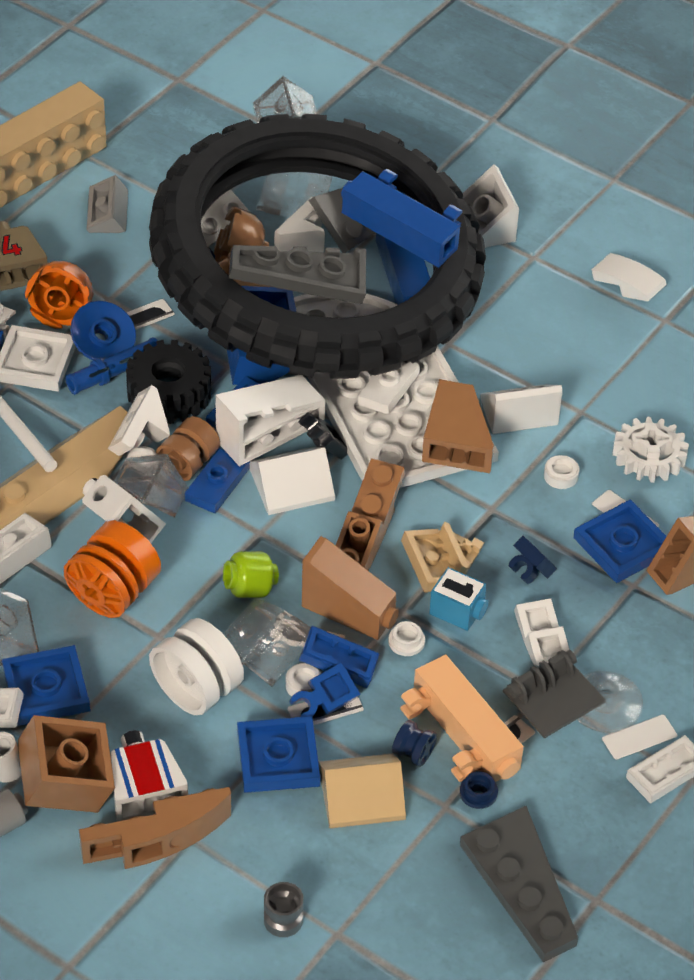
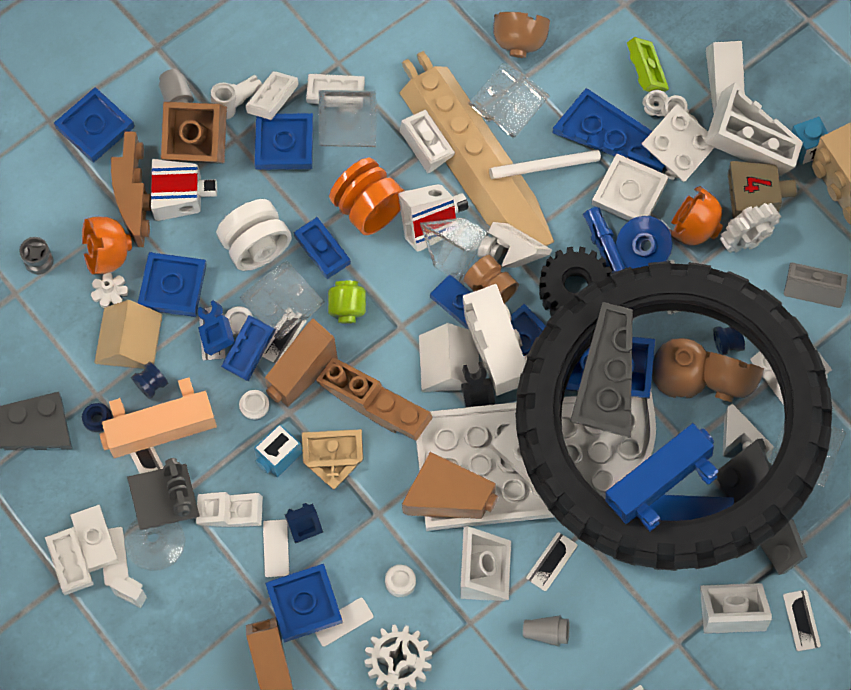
camera: 110 degrees right, 20 degrees up
(65, 239) = (750, 227): none -> white gear
(69, 899) = (94, 124): none -> blue plate
(190, 604) = (322, 248): none -> blue plate
(252, 831) = (105, 244): none -> orange cylinder
(303, 825) = (109, 290): none -> white plant
(466, 178) = (801, 620): none -> sticker
(488, 360) = (551, 561): none -> sticker
(566, 341) = (548, 630): none -> light grey cone
(569, 587) = (276, 548): none -> white sticker
(625, 752) = (94, 538): none -> white plate
(678, 698) = (129, 590): none -> white plate

